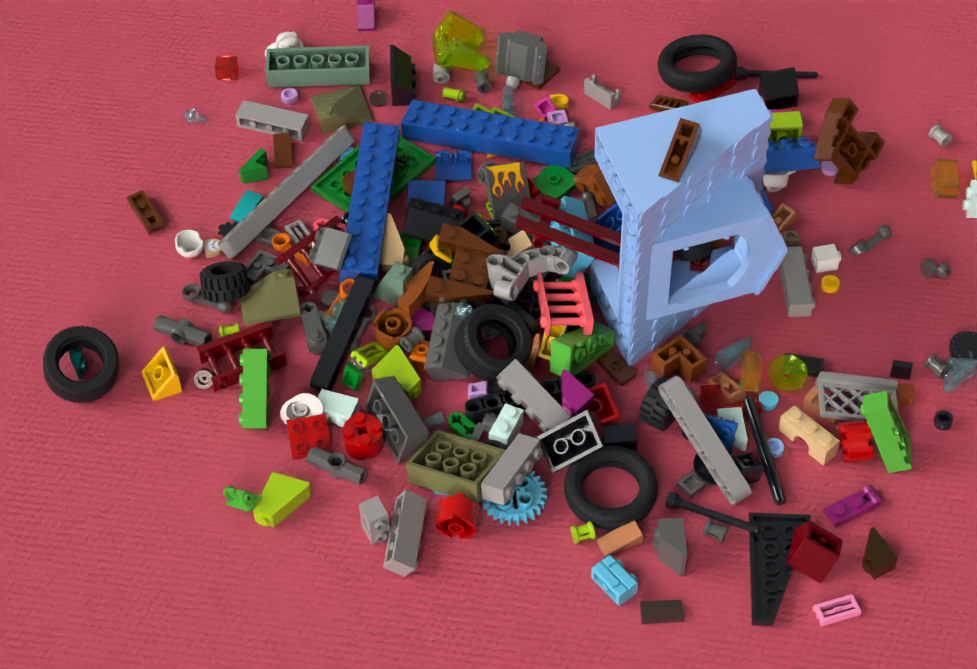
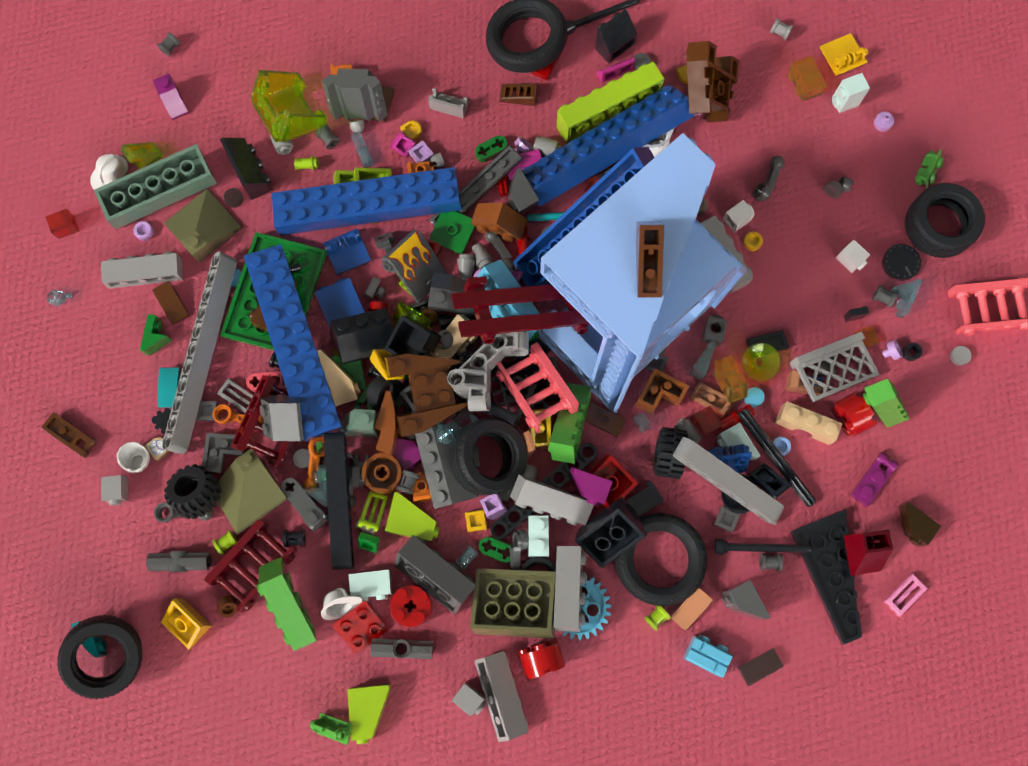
camera: 25 degrees left, 25 degrees up
(160, 259) = (114, 489): none -> light grey brick
(291, 351) = (299, 538): none -> black bush
(317, 39) = (141, 153): none -> clear neon green slope
(368, 326) = (357, 481): none -> dark grey plate
(456, 400) = (475, 521): none -> yellow tile
(759, 332) = (709, 335): none -> dark grey brick
(920, 325) = (853, 256): none -> white brick
(923, 410) = (893, 350): none -> lavender tile

